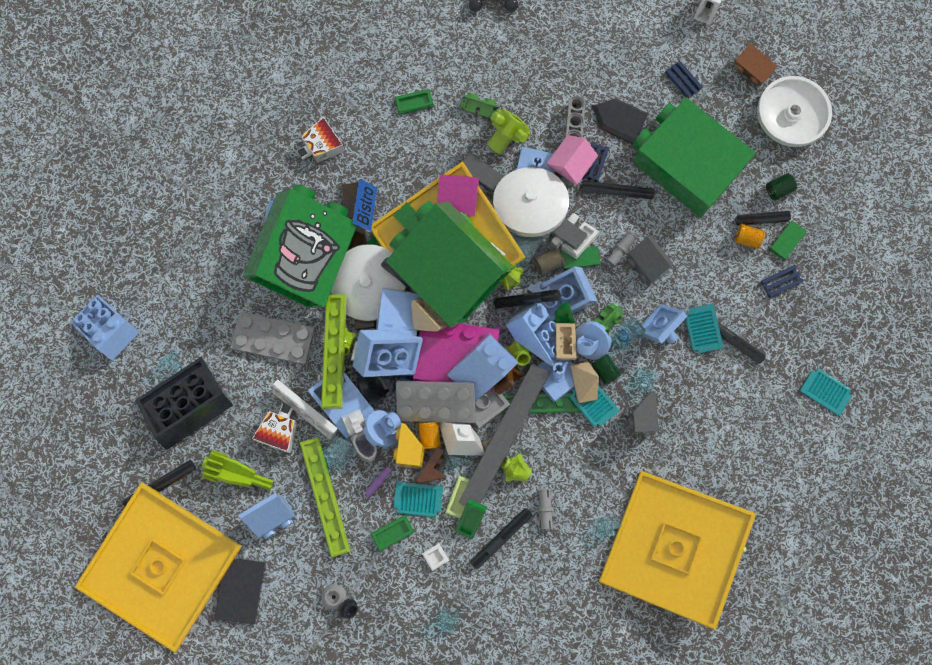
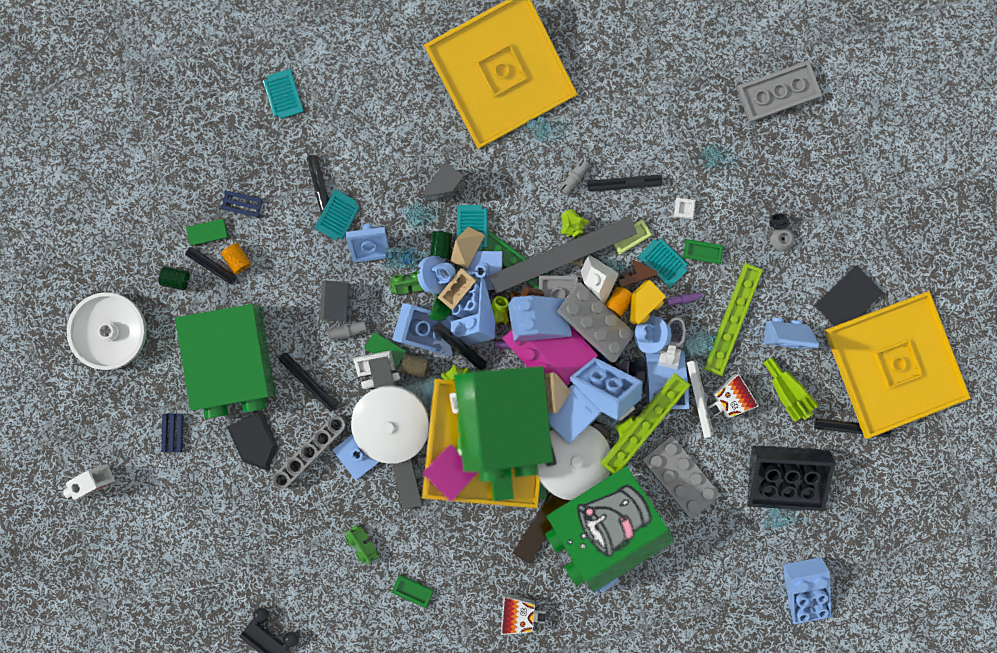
camera: 135 degrees left, 10 degrees up
(364, 205) = (526, 529): blue sticker -> none
(470, 519) = (637, 213): green tile -> none
(508, 128) = (355, 502): lime piece -> none
(573, 158) = (326, 434): bright pink slope -> none
(599, 148) = (292, 429): dark blue tile -> none
(755, 65) = (102, 396): dark orange brick -> none

